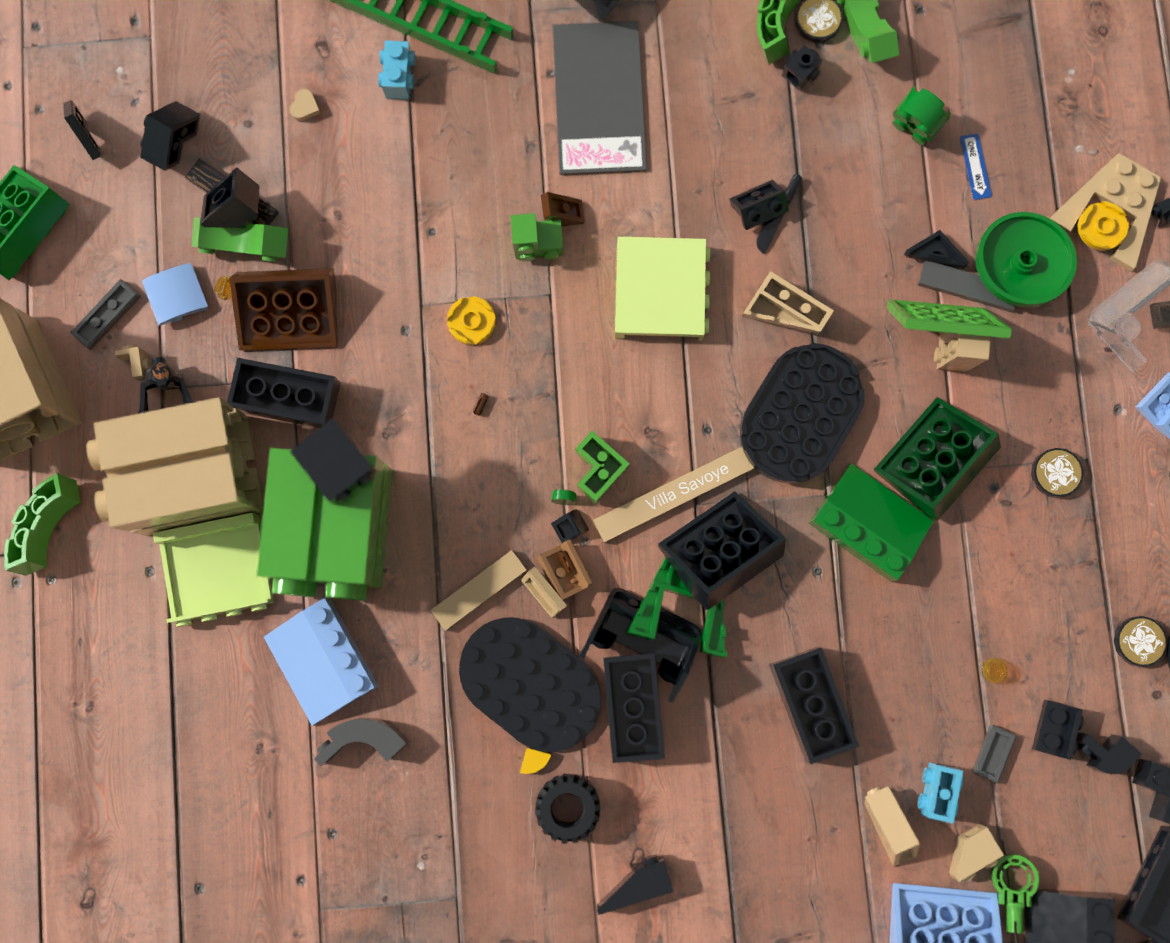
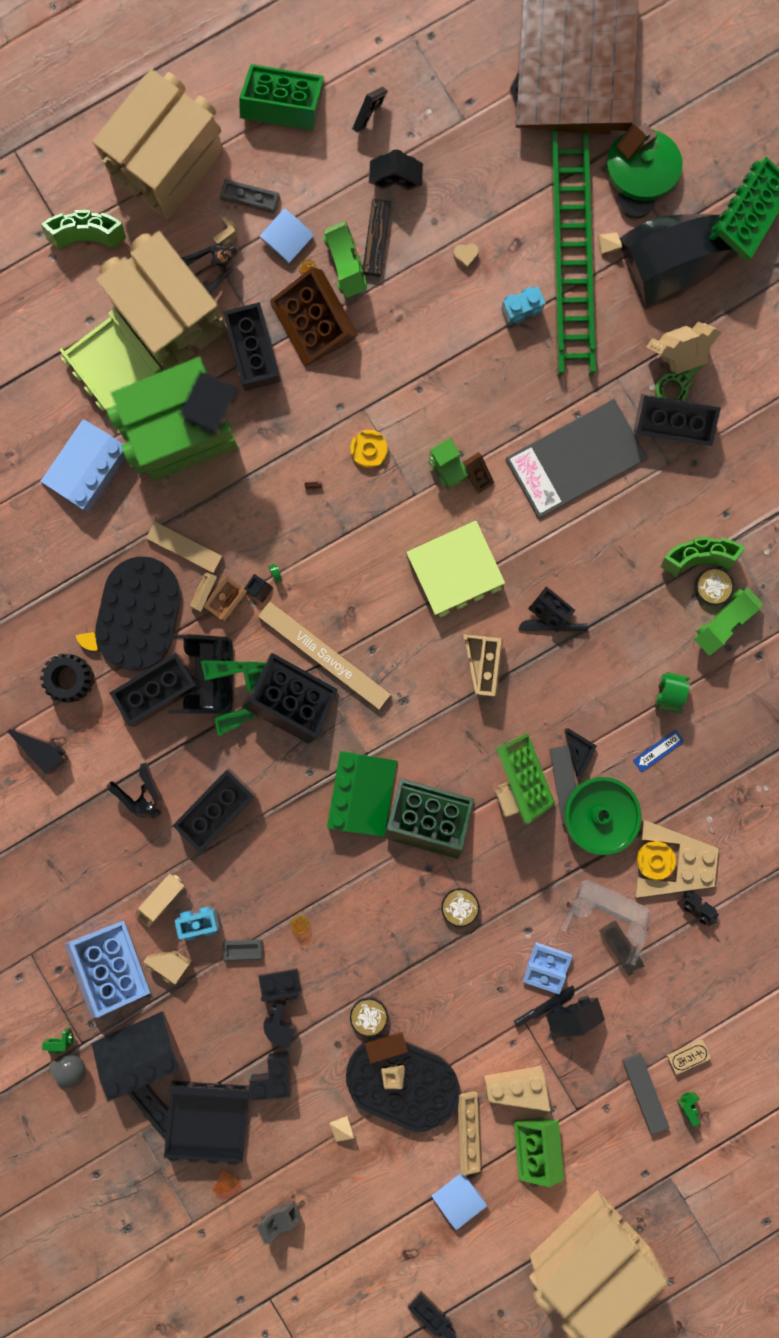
camera: 60 degrees right, 5 degrees up
(231, 202) = (366, 240): black slope -> none
(373, 731) = (55, 524): dark grey arch -> none
(605, 466) = (310, 590): bright green brick -> none
(767, 794) = (140, 807): none -> black piece
(801, 413) = (414, 709): black plate -> none
(802, 67) = (662, 592): black brick -> none
(1014, 907) = (146, 1008): bright green pin -> none

